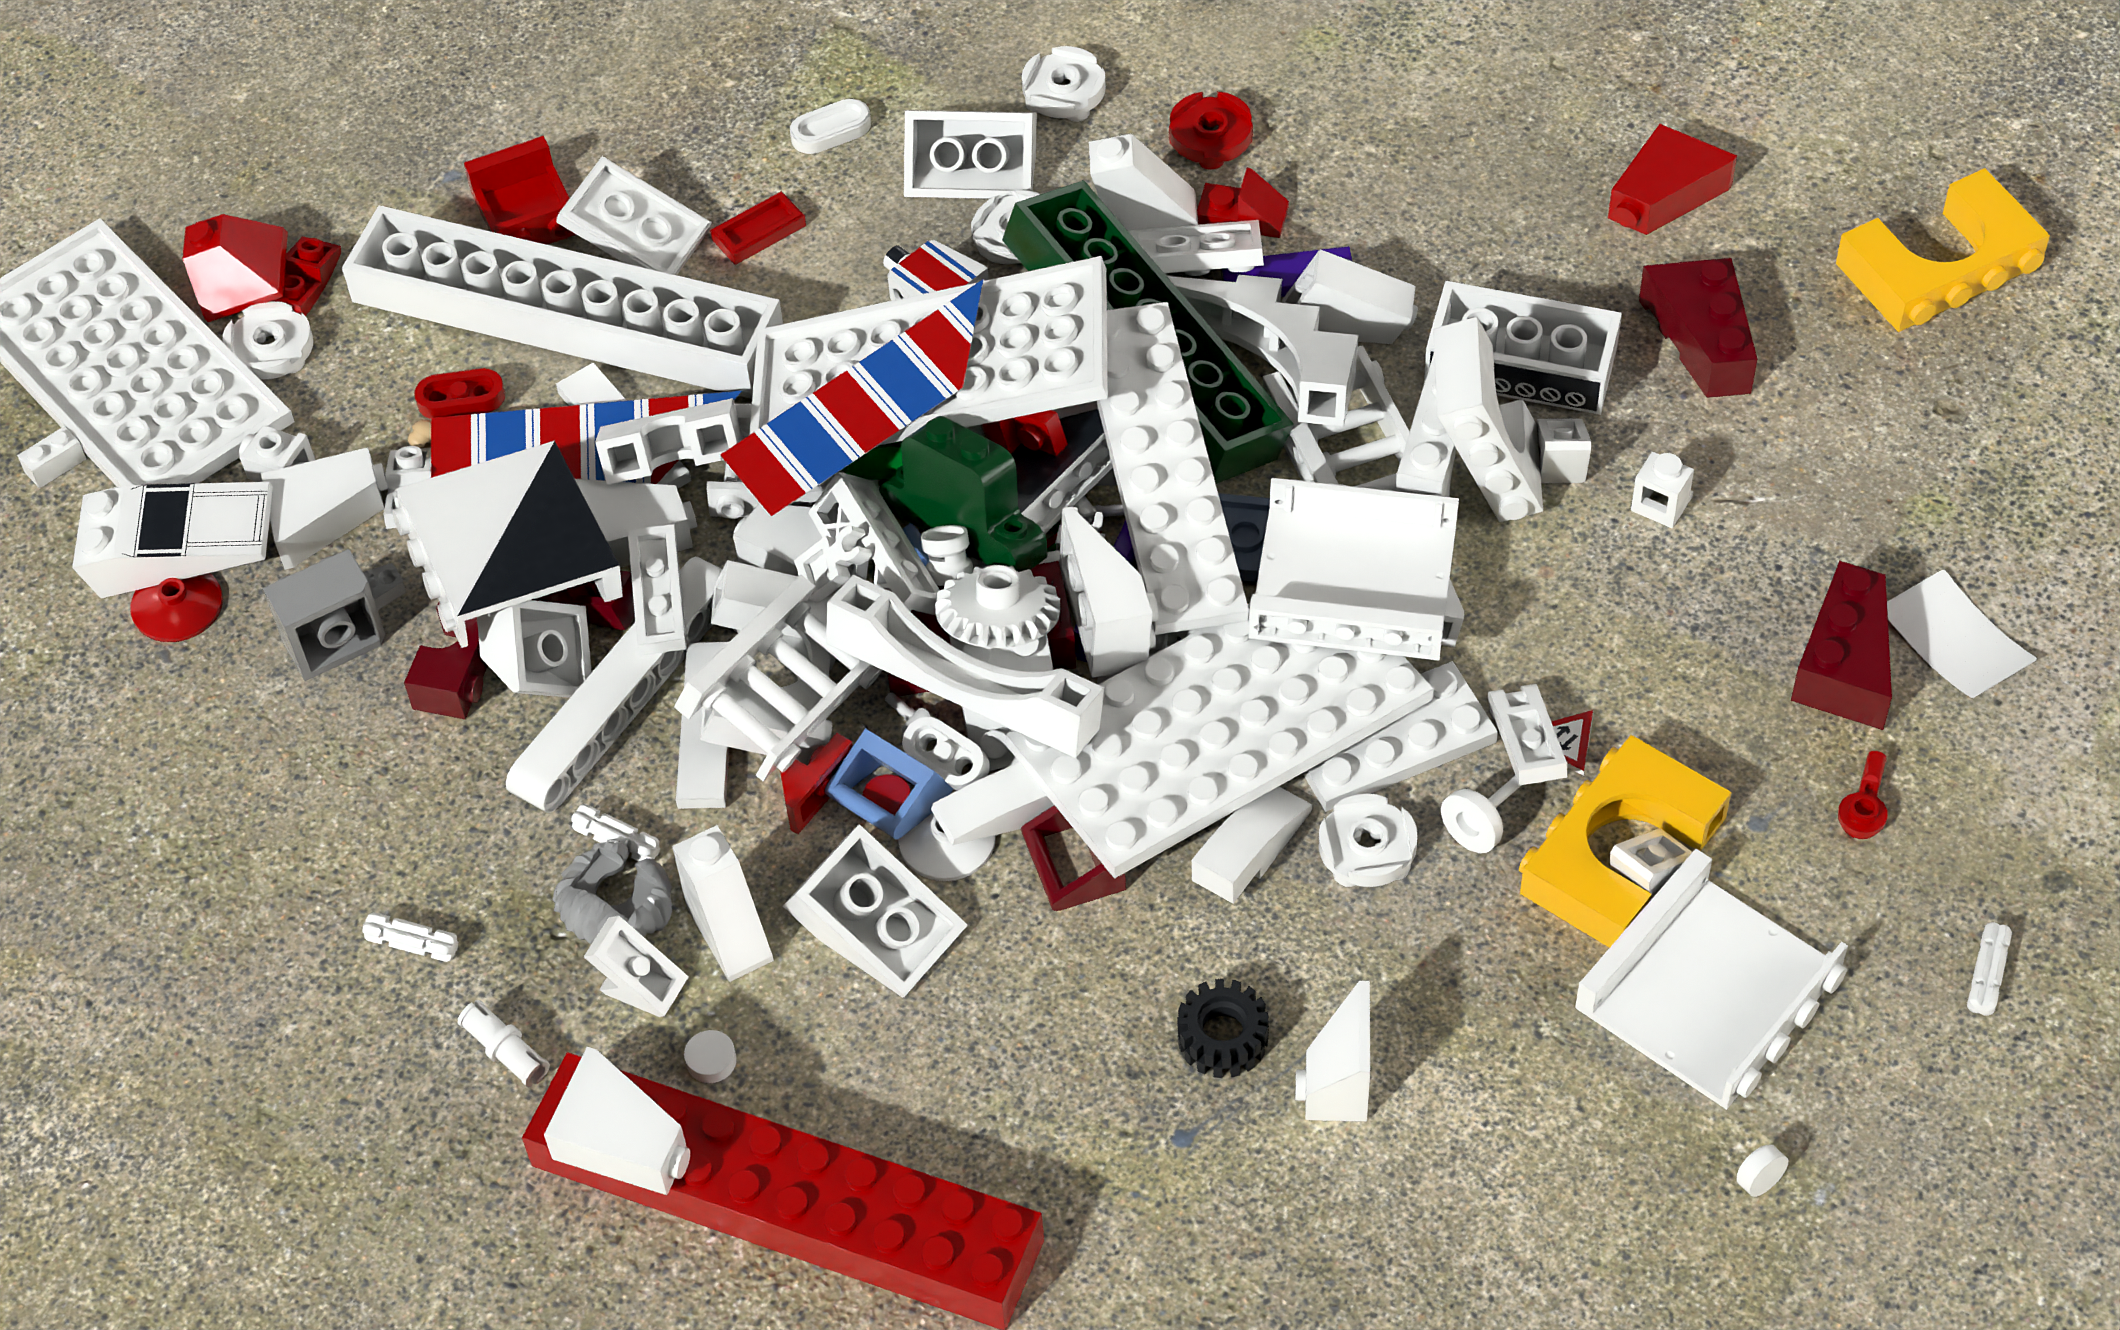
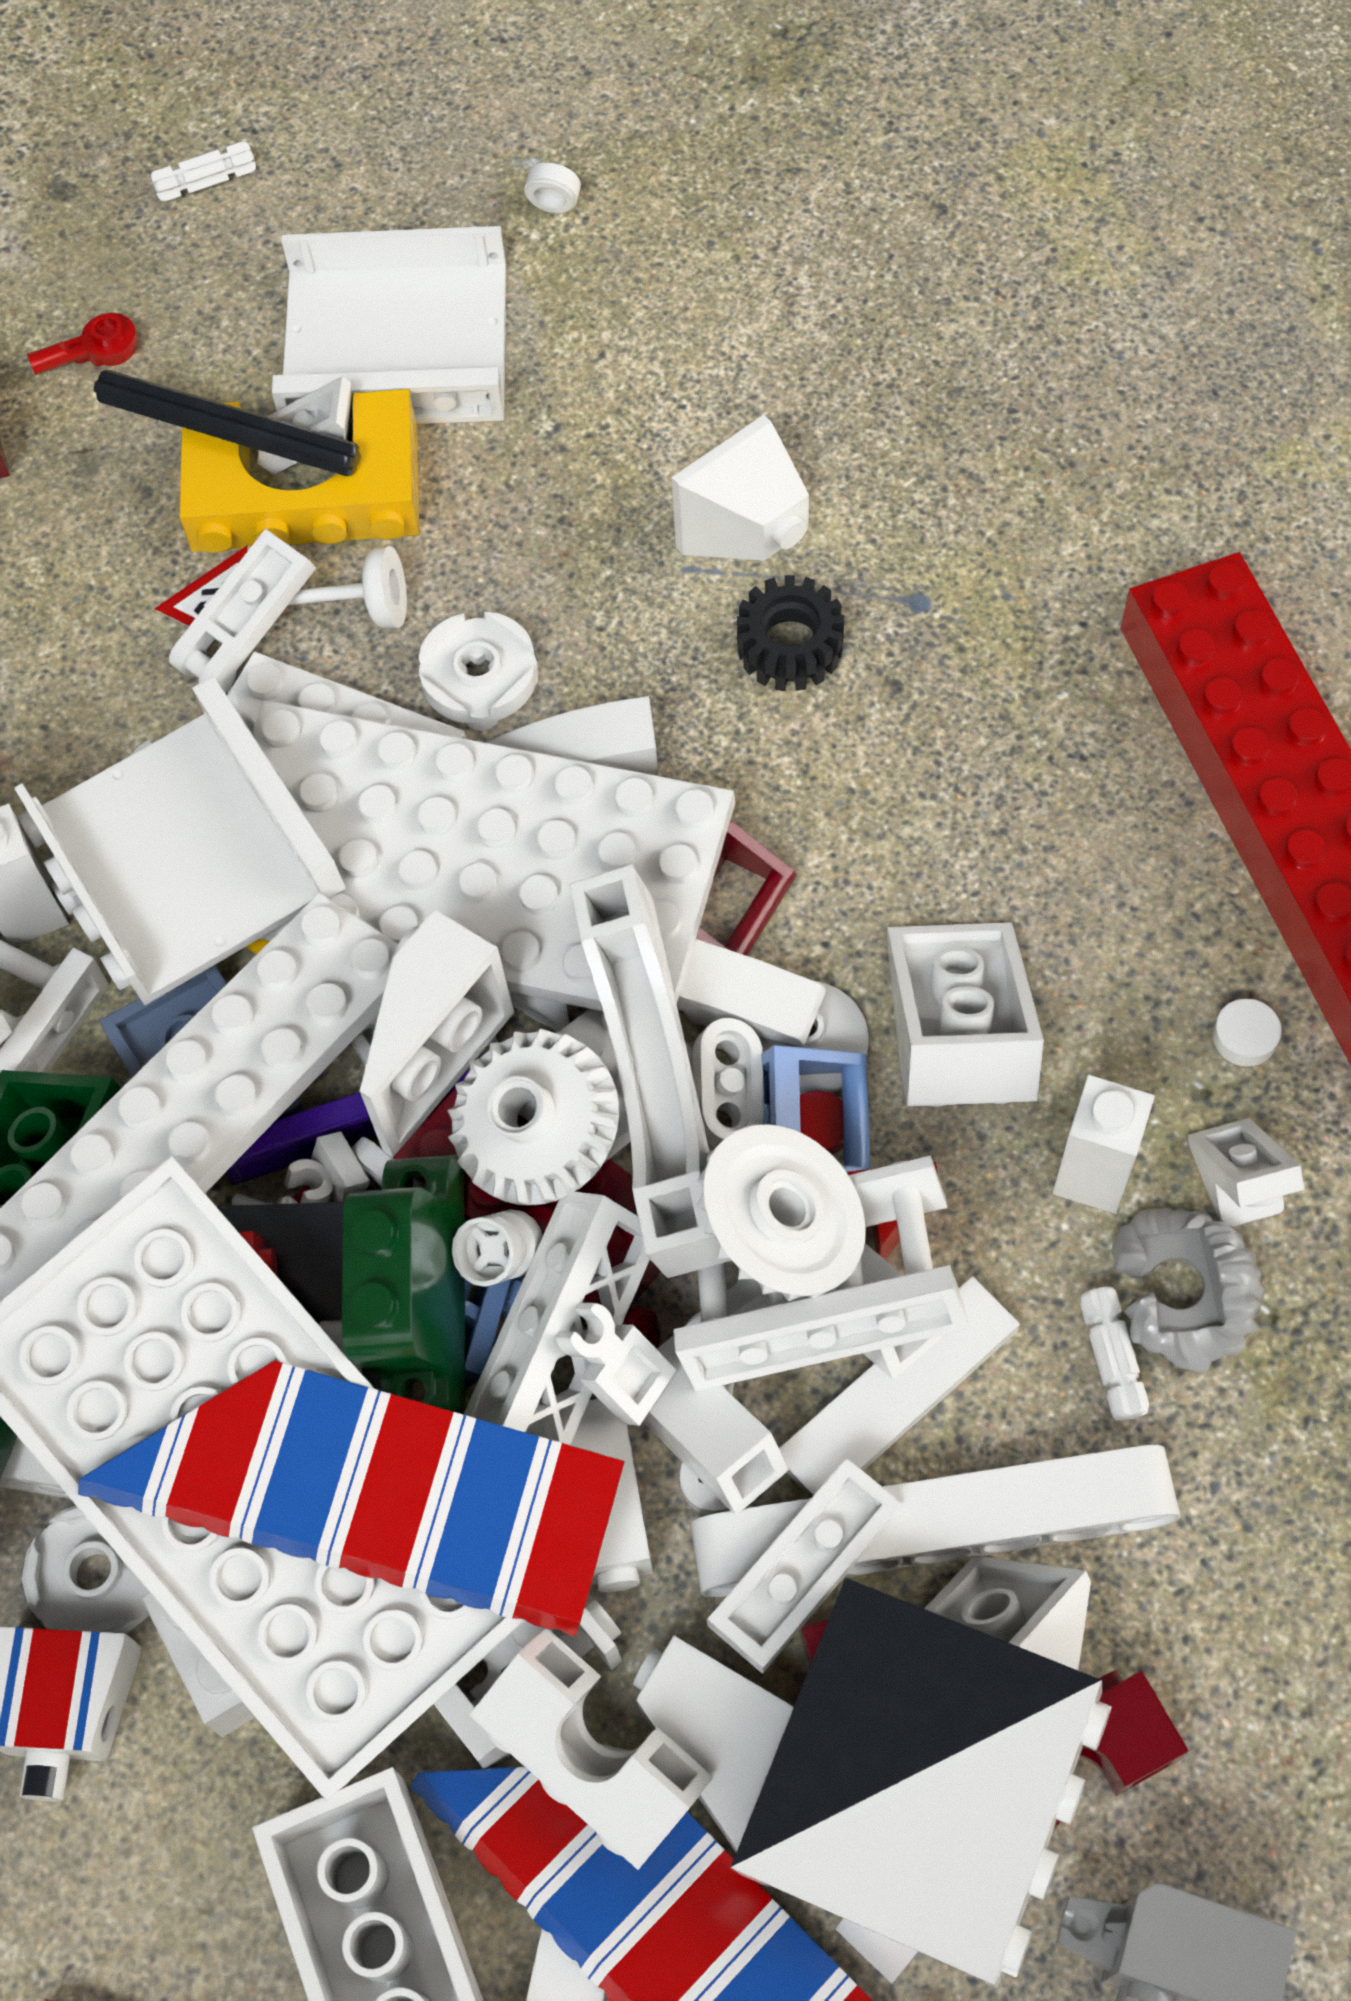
camera: 130 degrees left, 10 degrees up
(785, 645) = (782, 1211): none -> white gear
(1682, 797) = (227, 422): none -> black axle

